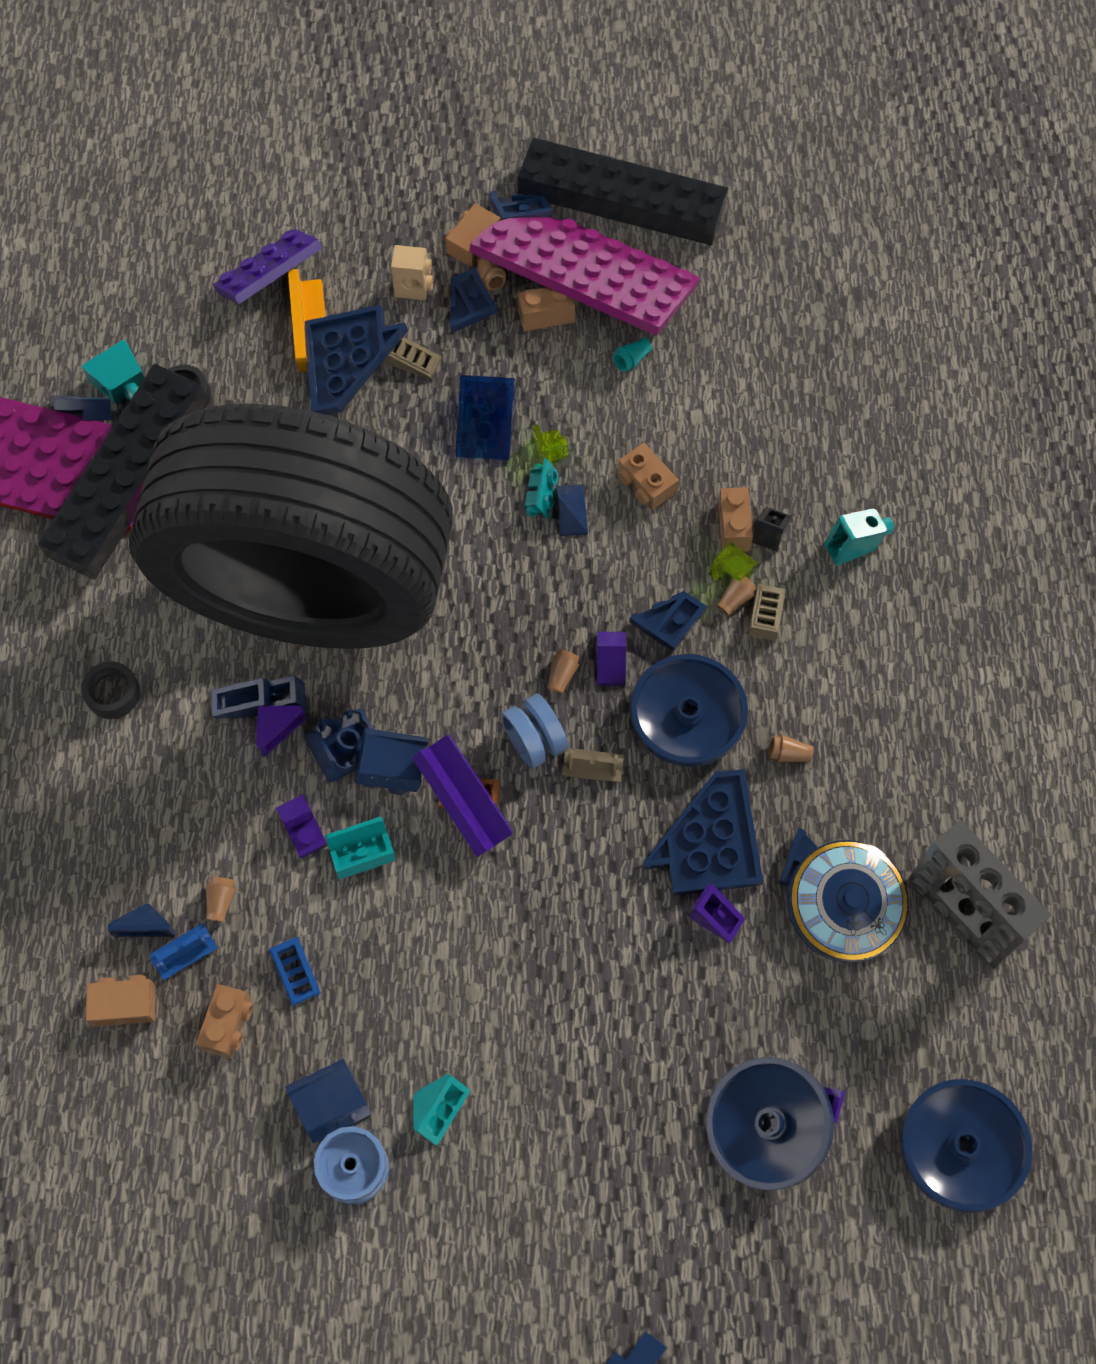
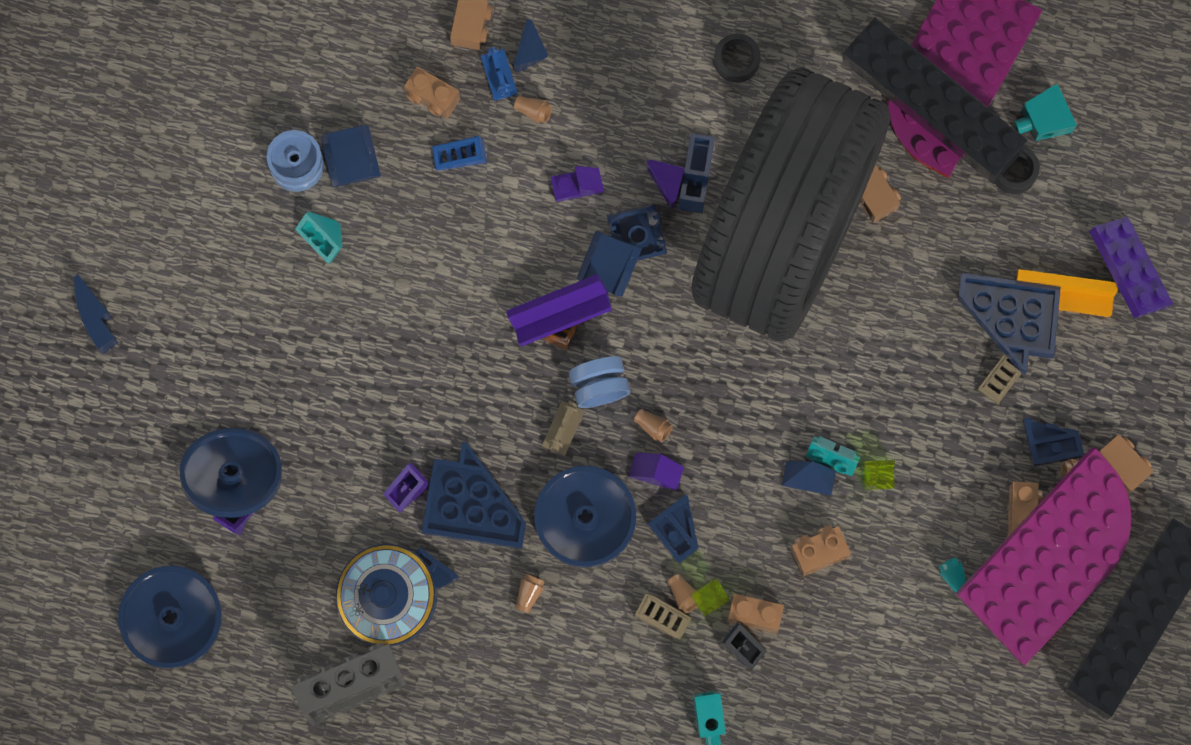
camera: 105 degrees right, 10 degrees up
(88, 407) = (1019, 73): dark blue slope -> none
(360, 847) = (541, 224): teal bracket -> none
(411, 272) = (1086, 393): tan brick -> none
(486, 417) = (920, 425): clear blue slope -> none
(520, 206) = (1146, 516): dark blue wing -> none

